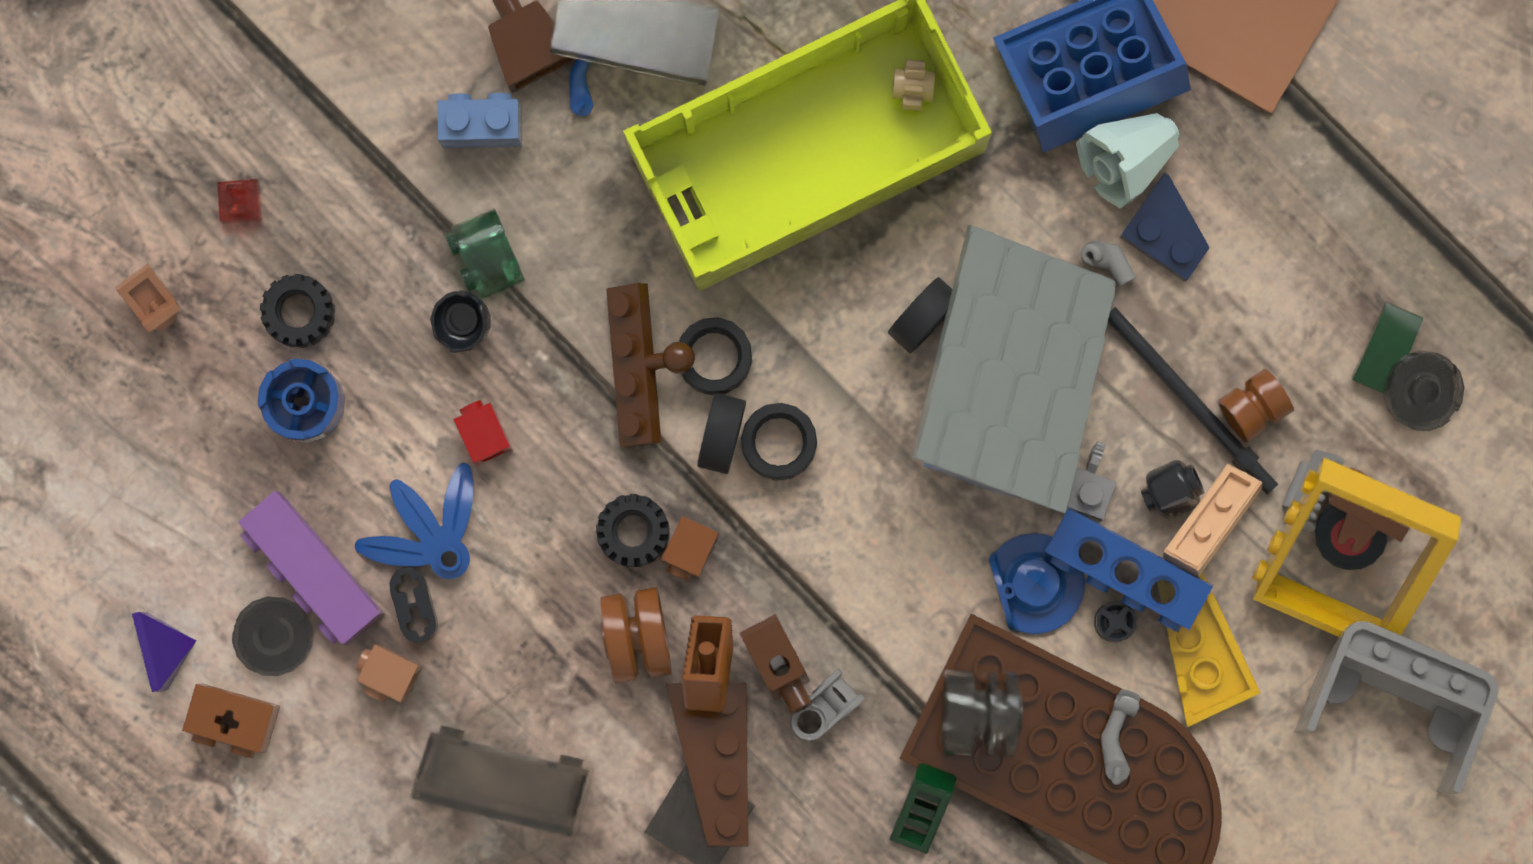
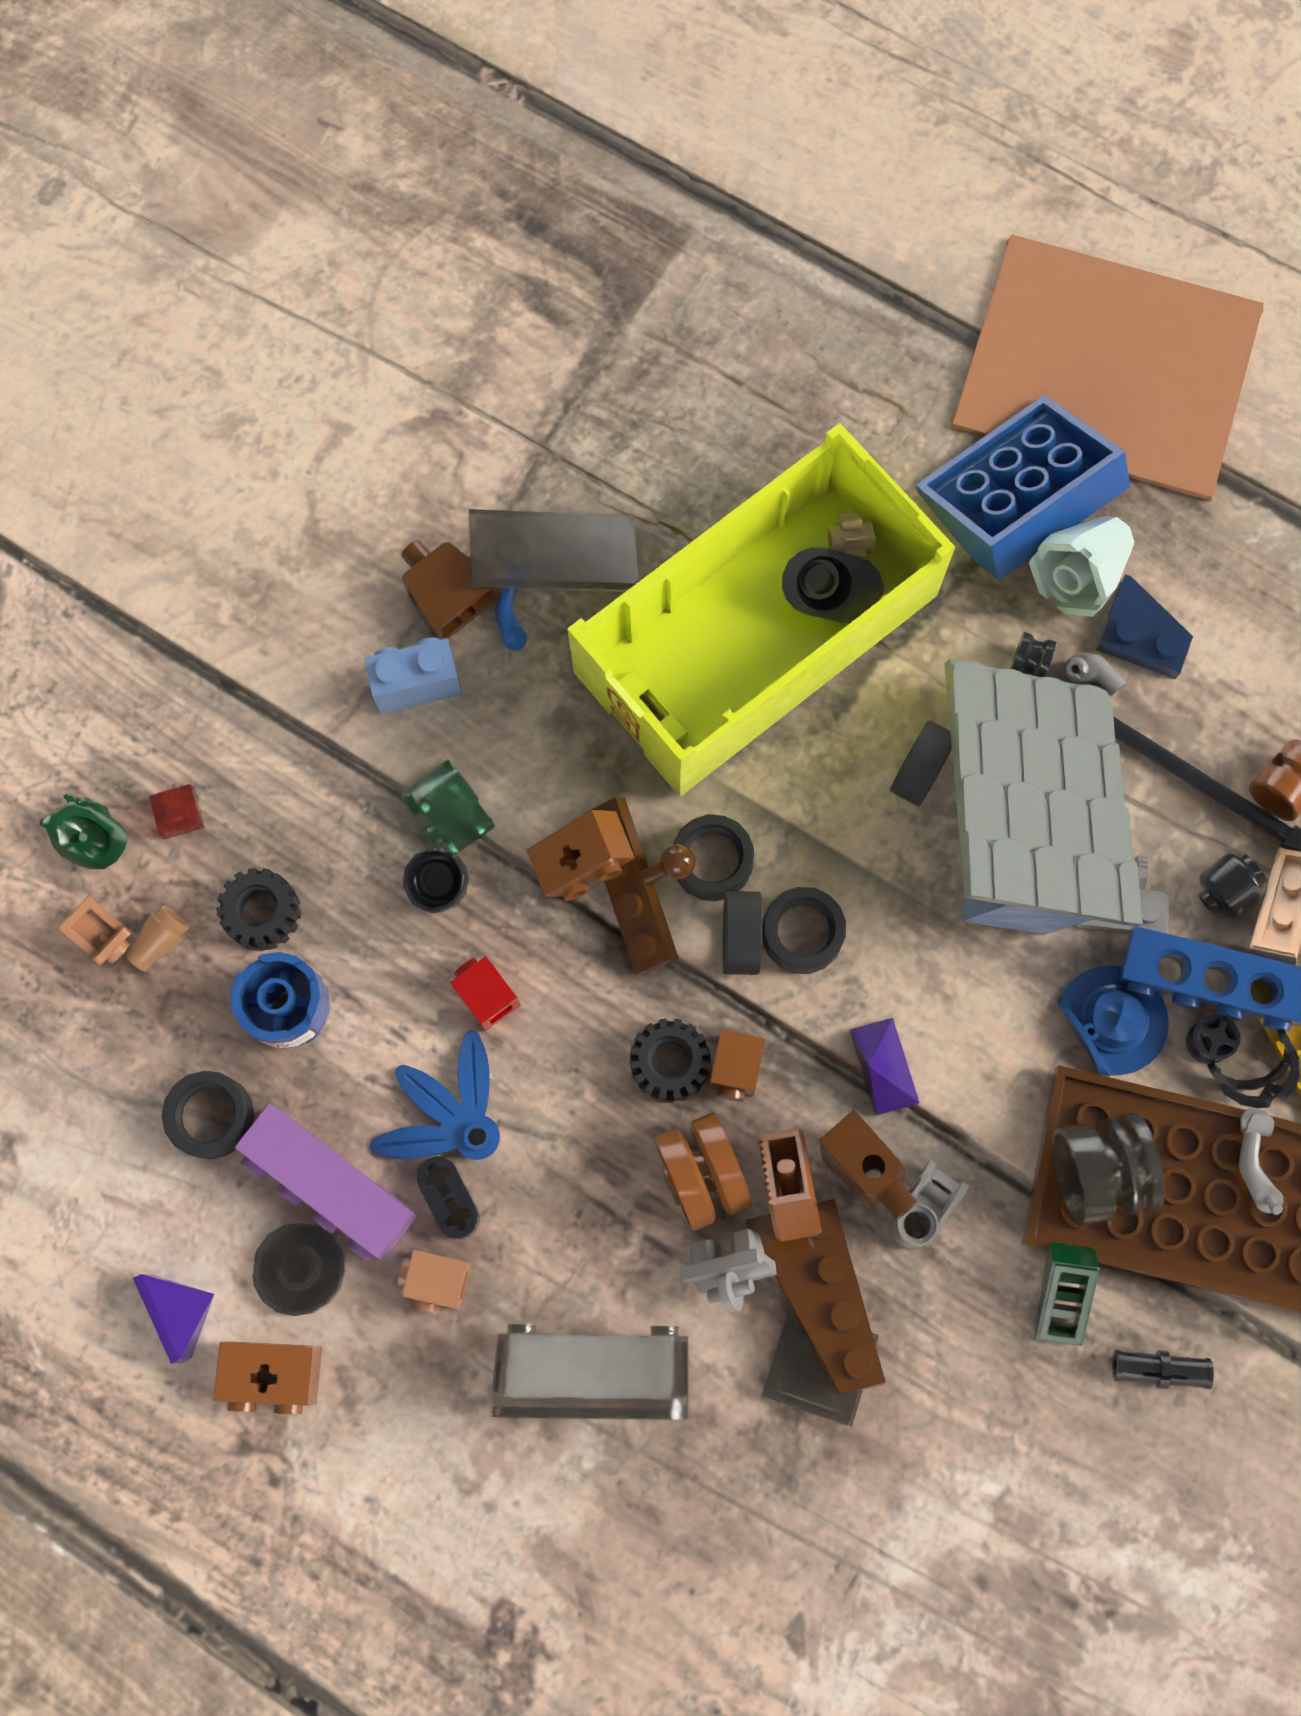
camera: 15 degrees left, 10 degrees down
(155, 205) = (85, 833): none -> dark green hat
(196, 465) = (179, 1096): none -> black tyre
(203, 315) = (158, 936): none -> medium nougat cone
(594, 329) = (581, 854): none -> dark orange brick
(636, 728) = (731, 1275): none -> light grey hips
(821, 578) = (884, 1066): none -> dark purple slope
(882, 128) = (831, 584): none -> black piece
(1054, 233) = (1033, 655): none -> black wheel
(1118, 663) = (1271, 1091): none -> black helmet

